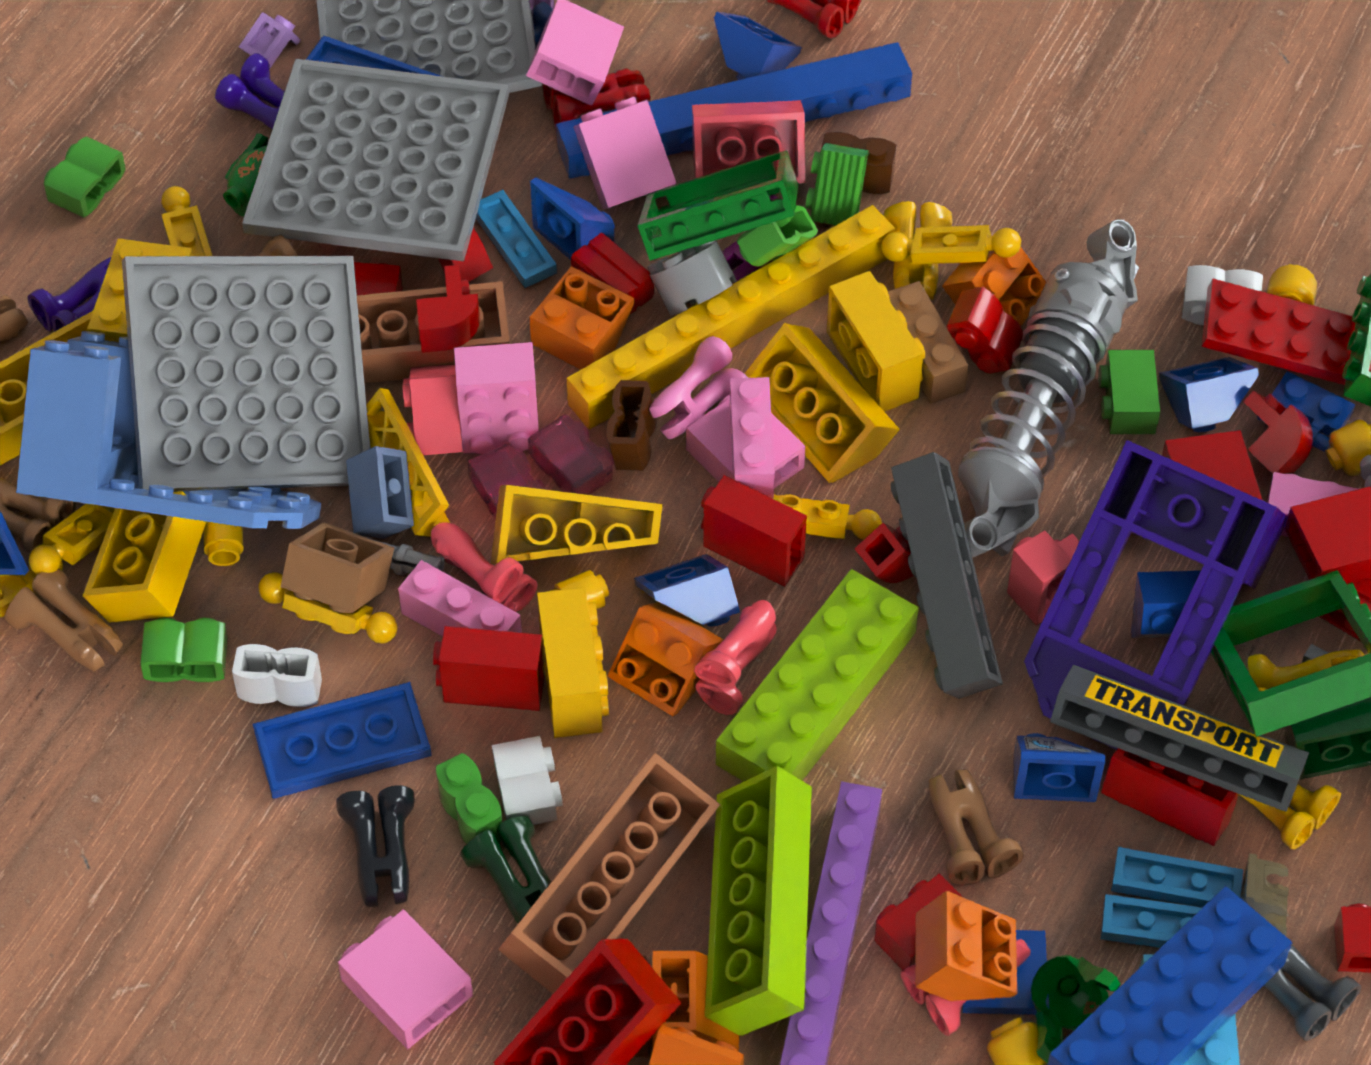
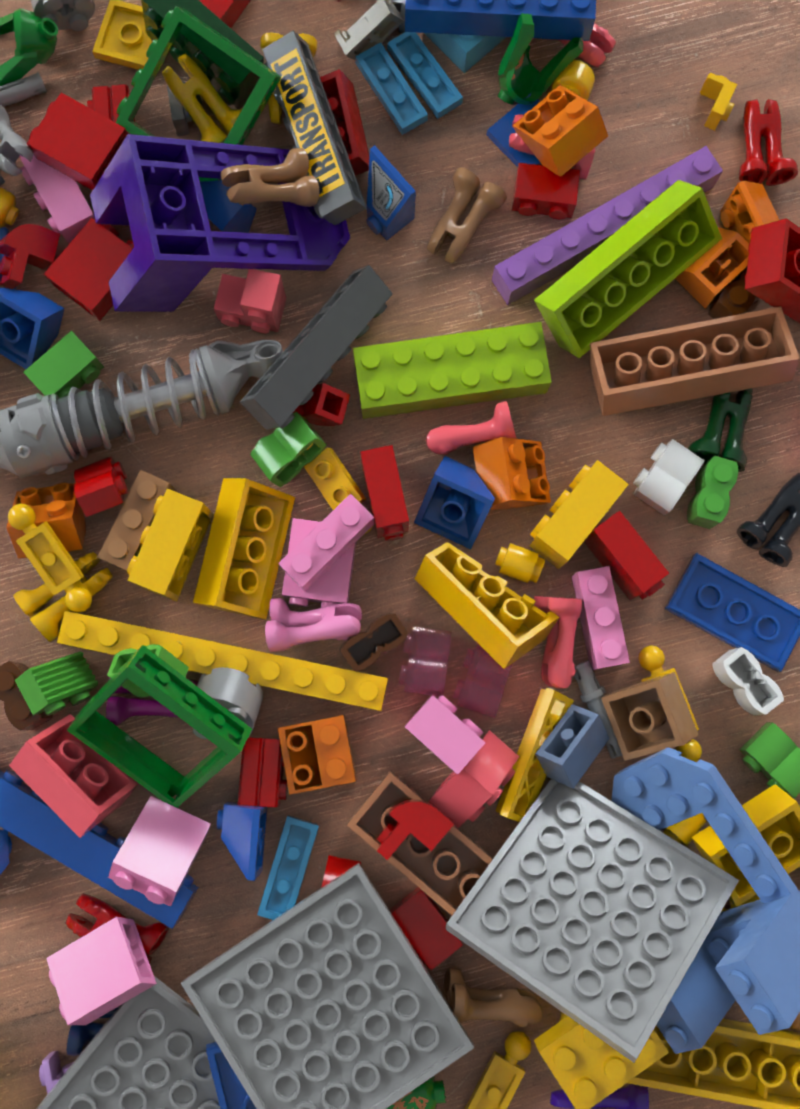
camera: 135 degrees left, 25 degrees up
(871, 495) = (285, 452): none -> bright green brick
(1163, 623) = (250, 186): none -> medium nougat piece

